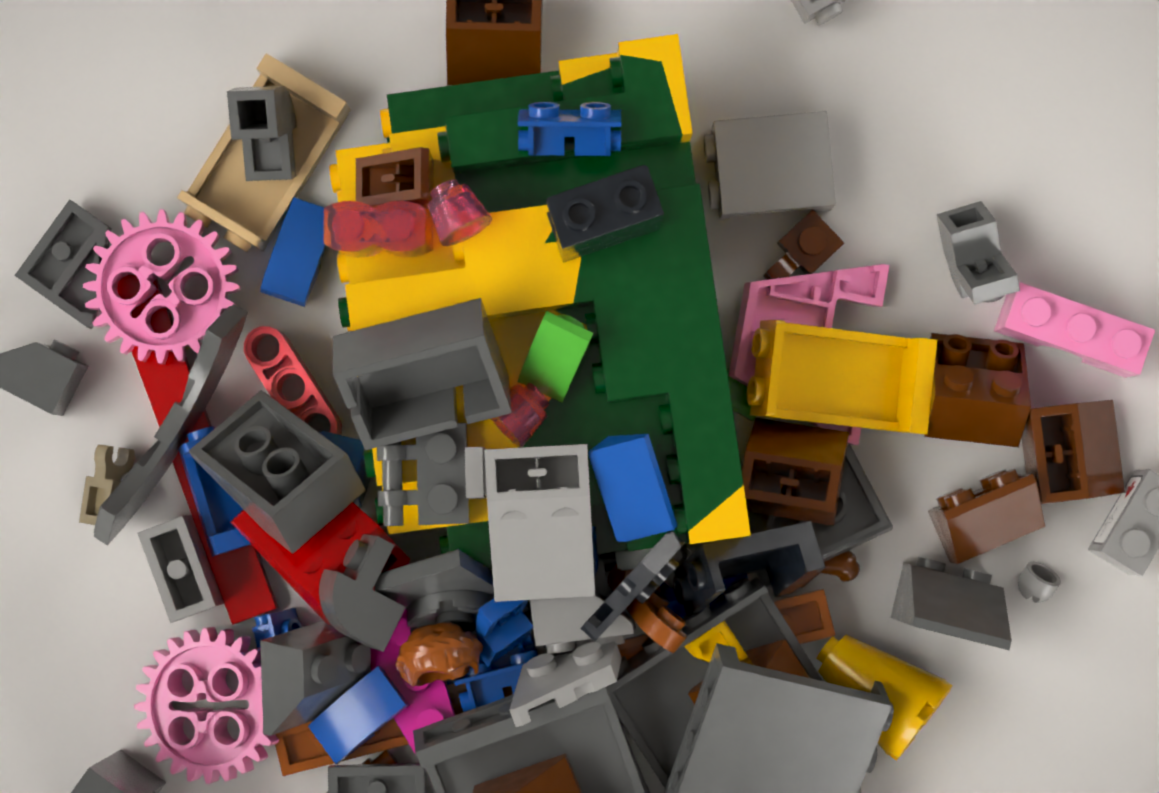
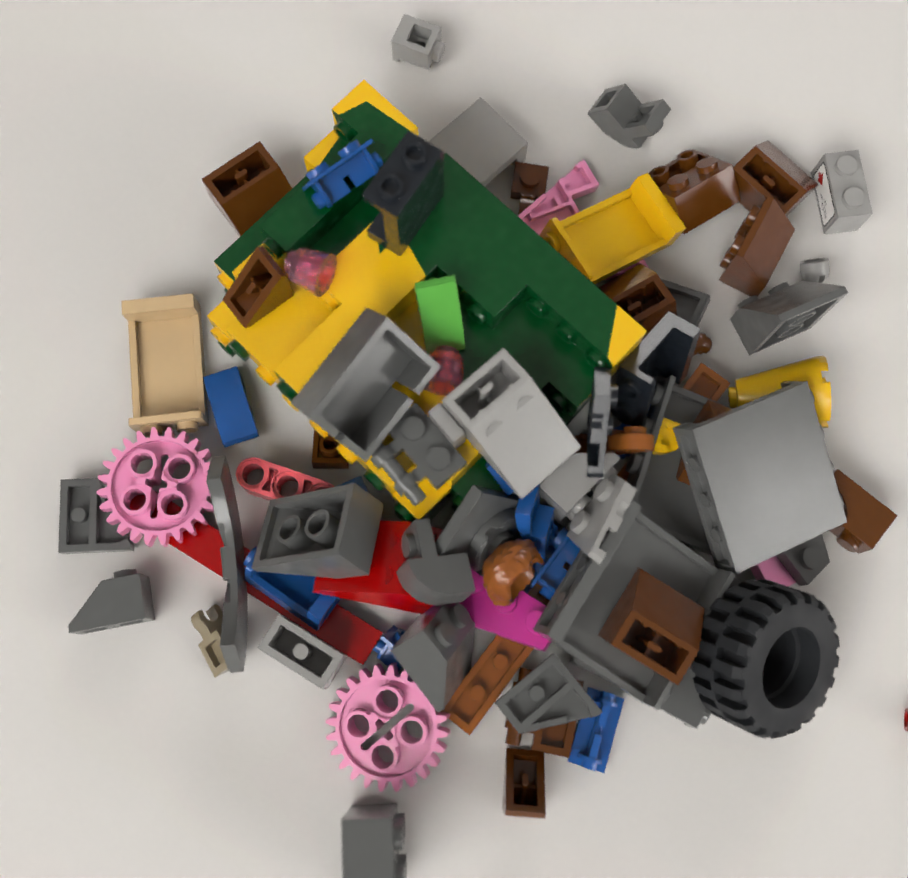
camera: 40 degrees left, 10 degrees down
(265, 124) = (154, 344): dark grey brick -> none
(358, 715) = (487, 655): blue slope -> none
(364, 231) = (262, 329): clear pink brick -> none
(632, 487) = (551, 356): blue slope -> none
(1073, 327) = (735, 108): bright pink arch -> none

